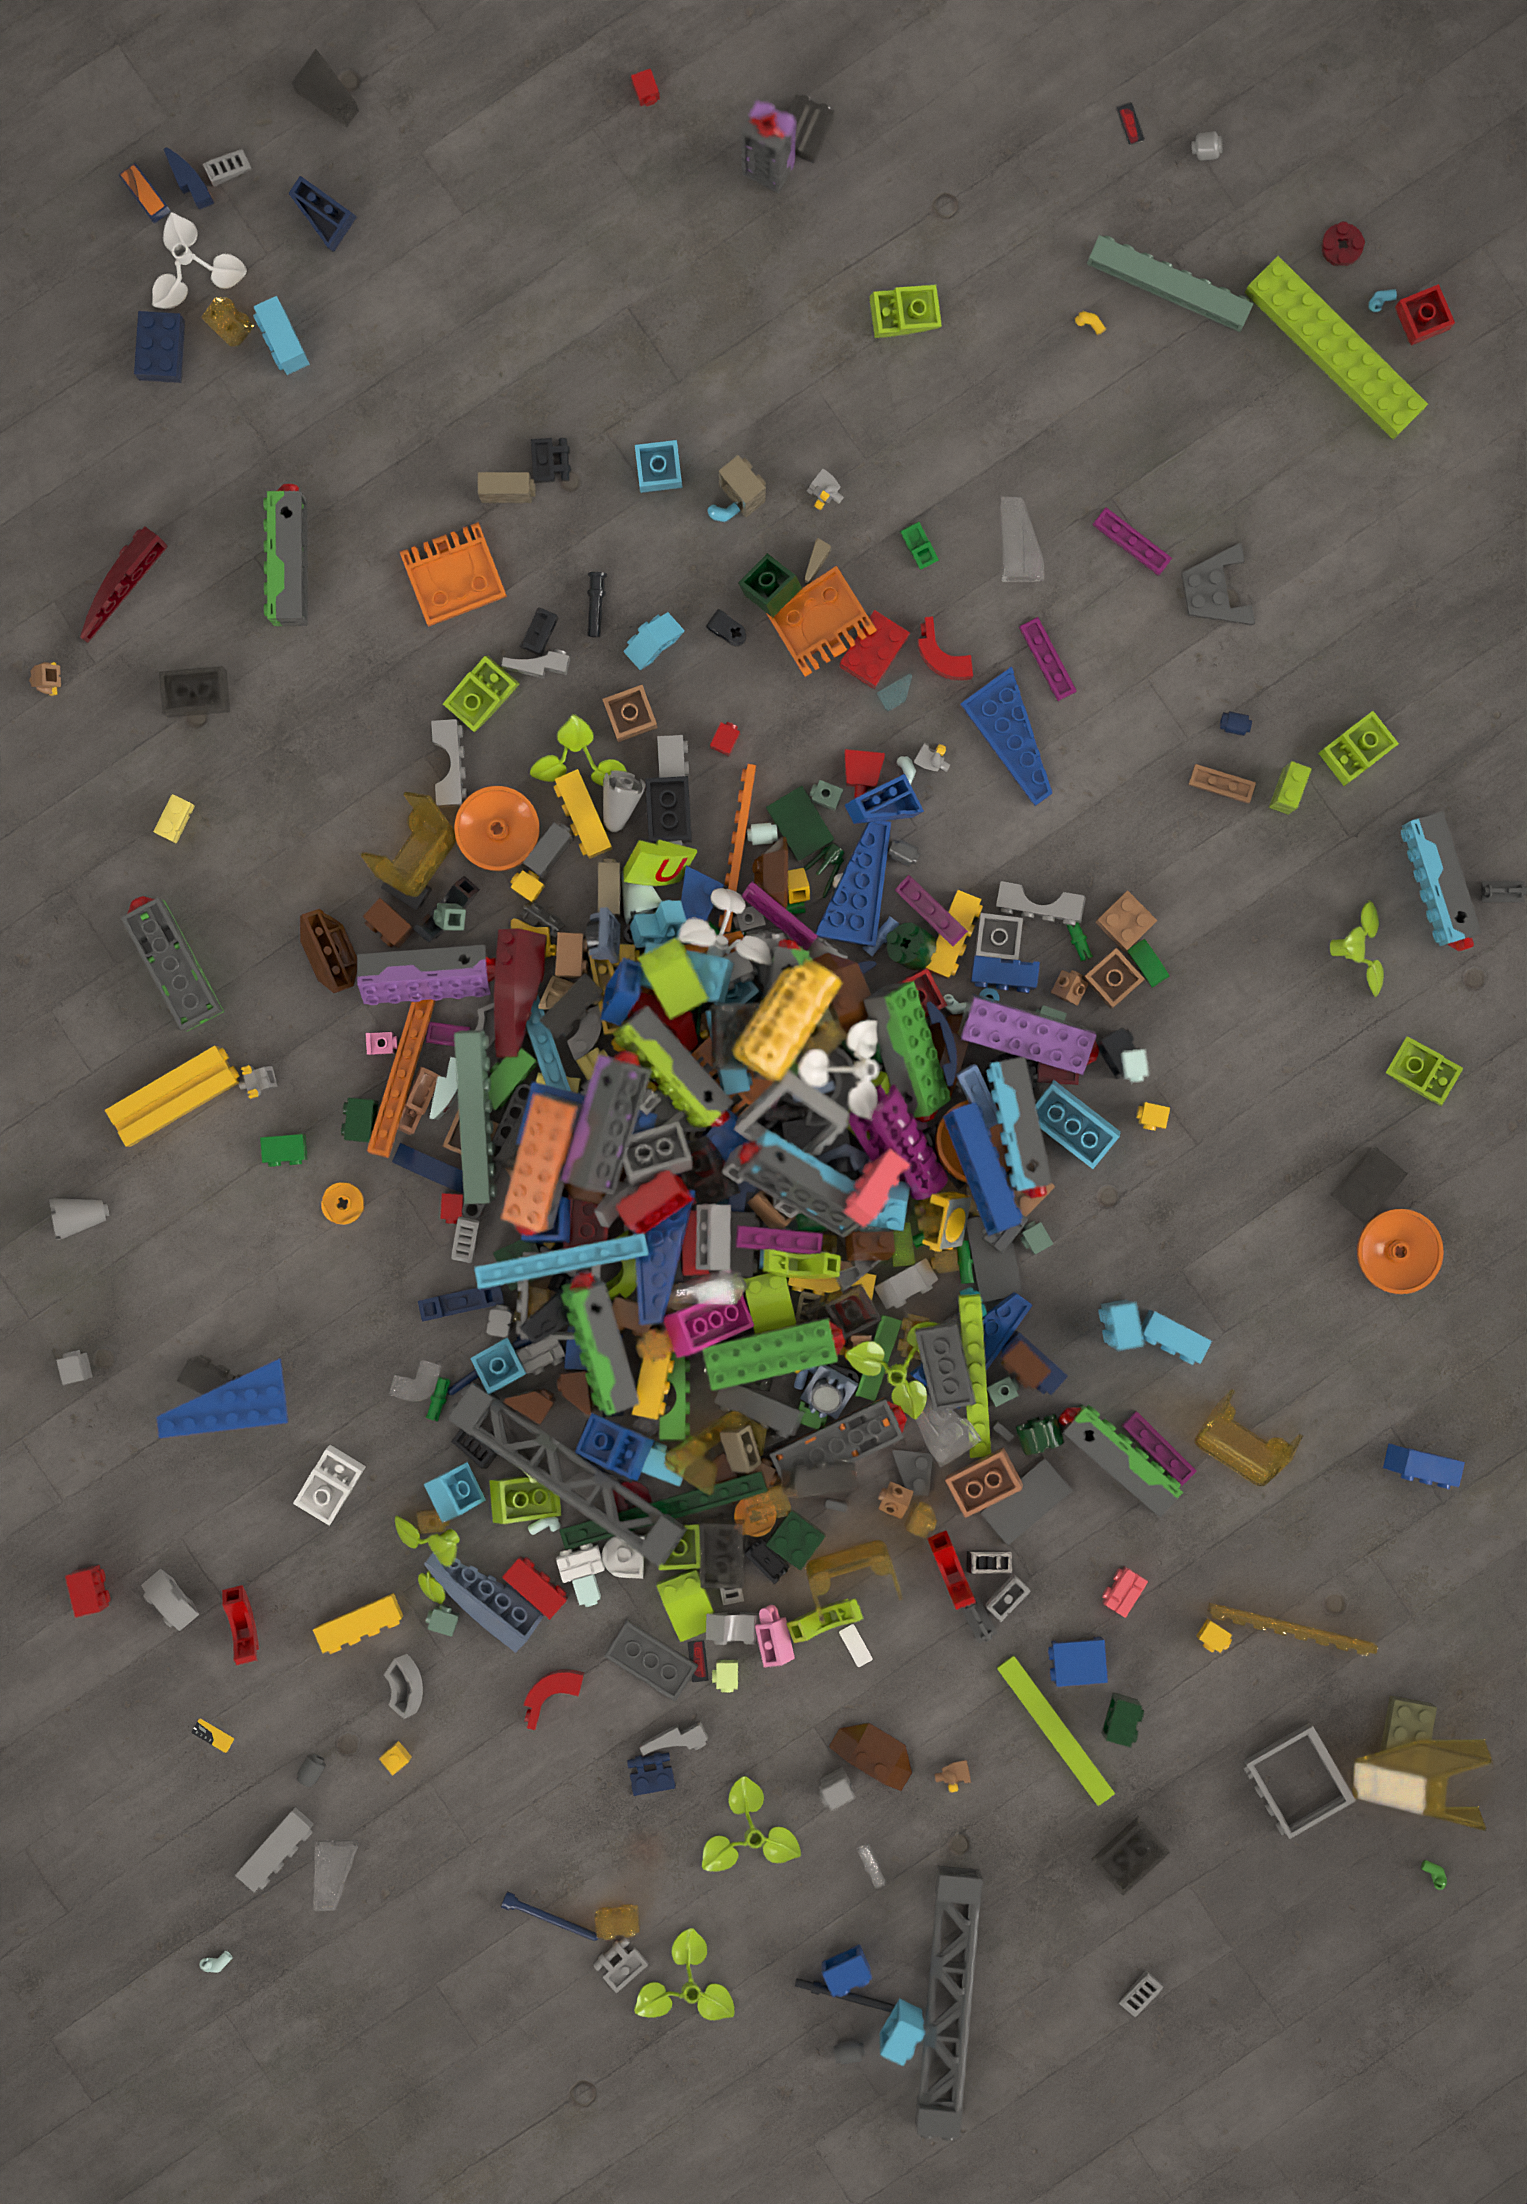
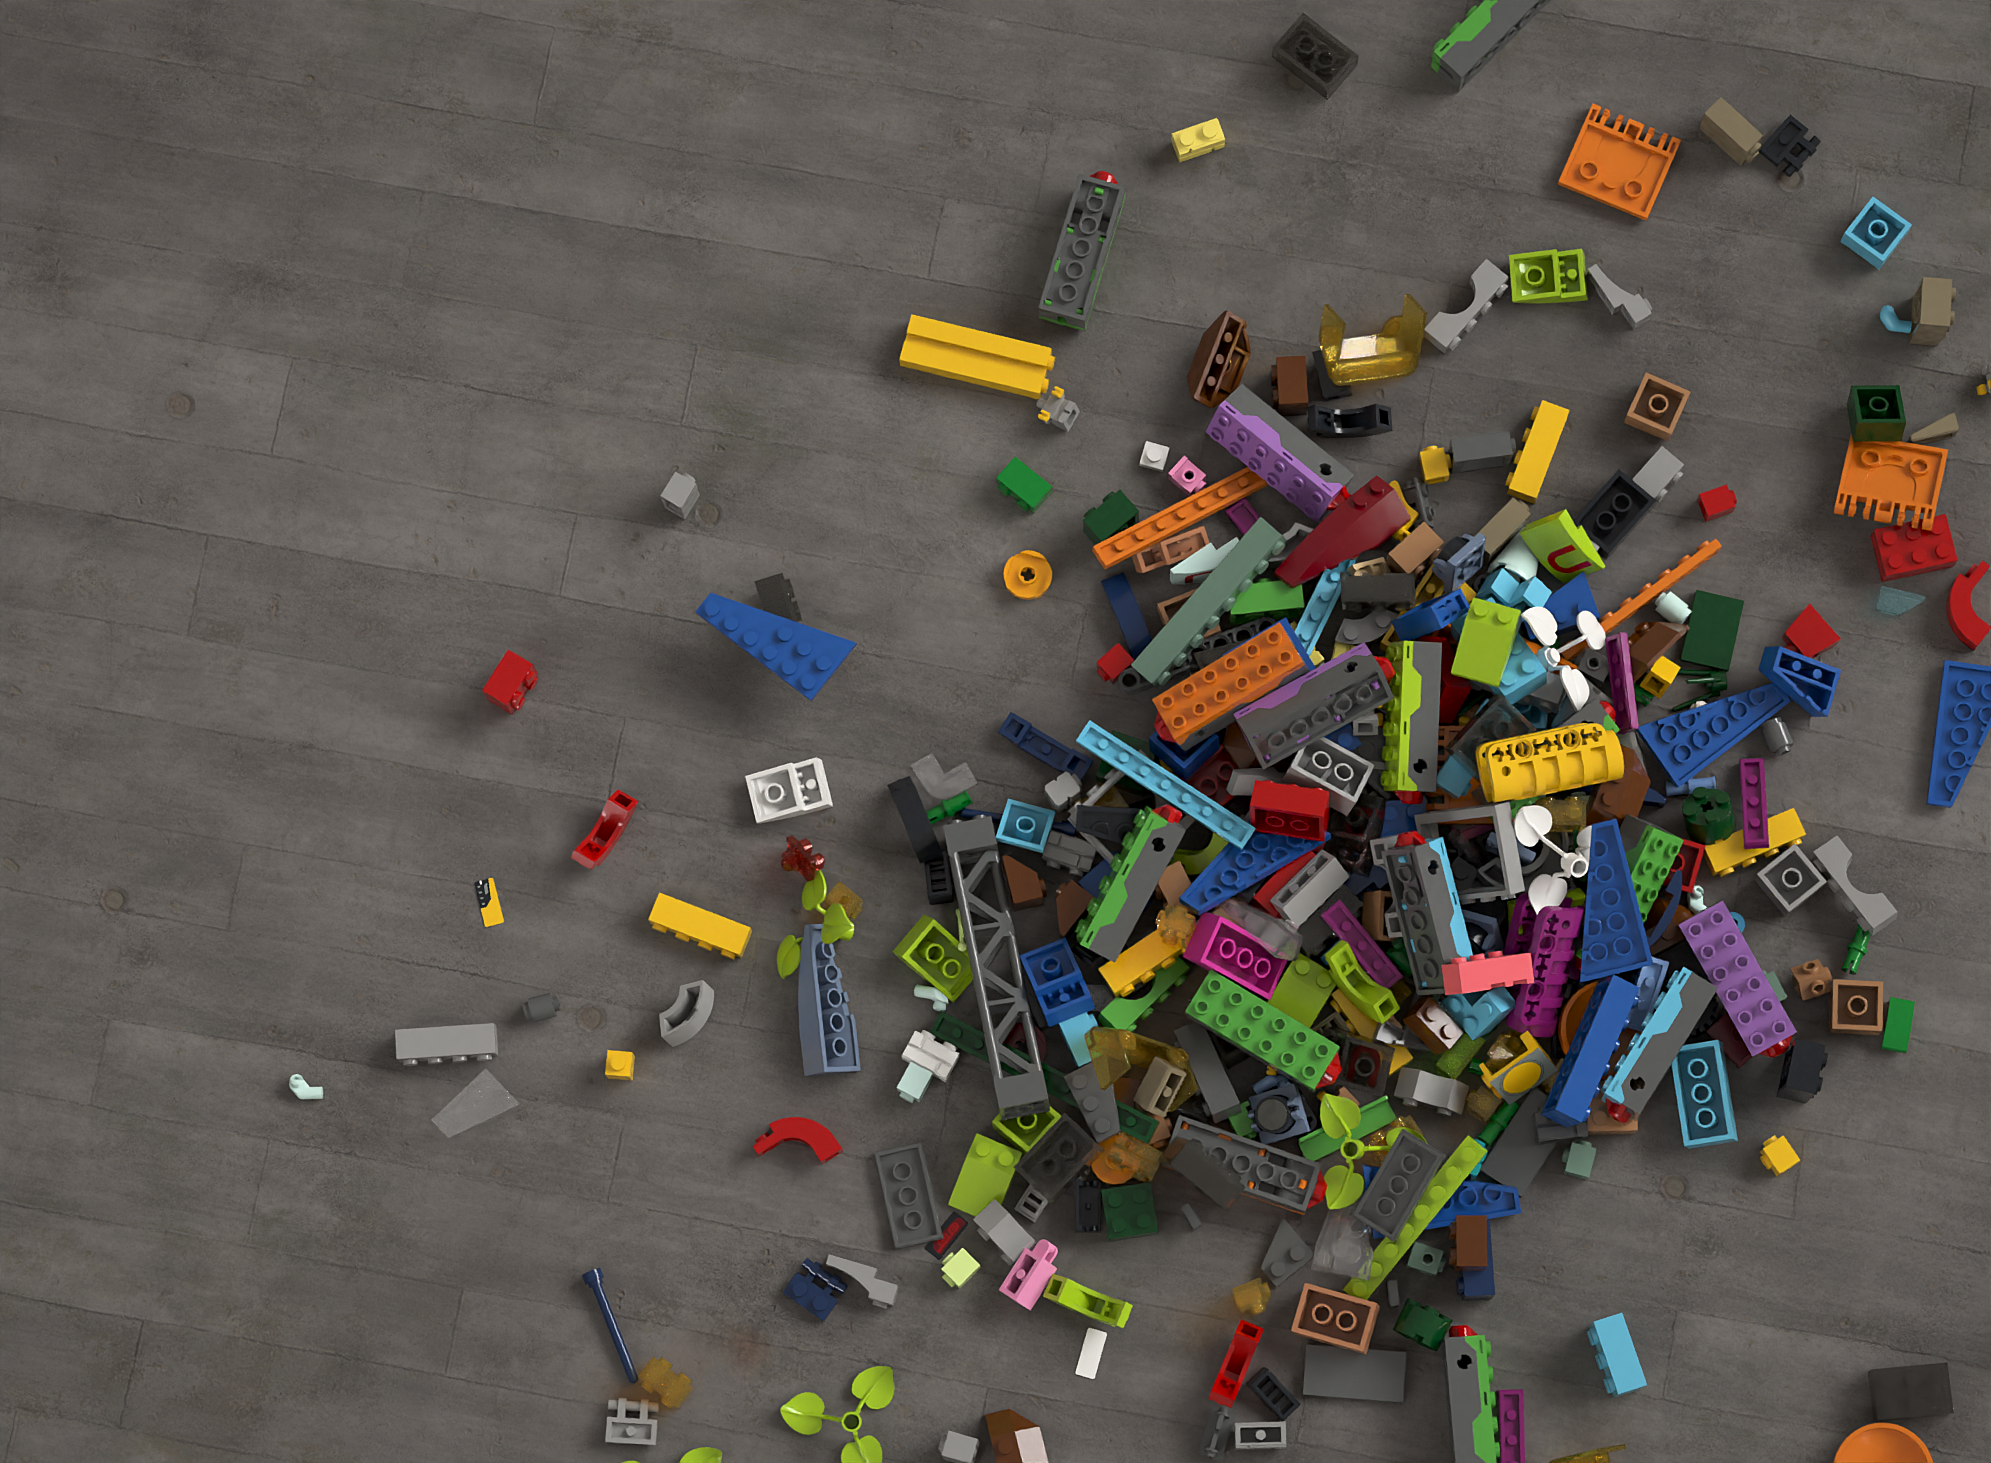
camera: 50 degrees right, 10 degrees down
(76, 1215) = (804, 376): light grey cone -> none
(169, 1600) = (567, 755): light grey brick -> none
(347, 1049) = (1154, 456): none -> white plate
(378, 1524) = (799, 858): none -> clear red hips
(424, 1428) = (915, 819): none -> black arch
(442, 1620) = (771, 991): sand green brick -> none
(449, 916) = (1347, 425): sand green brick -> none
(454, 1492) = (887, 893): medium azure brick -> none
(465, 1252) = (1086, 706): light grey slope -> none
(496, 828) = (1455, 394): orange dish -> none
(535, 1586) = (874, 1039): red brick -> none
(539, 631) = (1646, 273): black hinge -> none
(574, 736) = (1595, 378): lime plant -> none
(596, 594) = (1723, 287): black pin -> none
(620, 798) = (1581, 466): light grey cone -> none
(623, 1559) = (971, 1088): white tile -> none
(653, 639) = (1734, 365): medium azure brick -> none
(721, 1502) = (1095, 1104): none -> dark grey wing
(723, 626) = (1805, 412): black piece -> none
(826, 795) = (1757, 627): sand green brick -> none
(848, 1560) = (1179, 1287): clear yellow windscreen -> none
(895, 1499) = (1245, 1260): medium nougat brick -> none
(907, 767) = (1848, 670): light aqua arm -> none
(923, 1079) = (1613, 922): none -> blue wing
(932, 759) = (1875, 682): light grey piece -> none
(1004, 973) = (1765, 915): blue wedge -> none
(1121, 1324) = (1585, 1291): medium azure brick -> none
(1126, 921) = (1912, 970): medium nougat brick -> none
(1134, 1065) = (1805, 1083): light aqua brick -> none

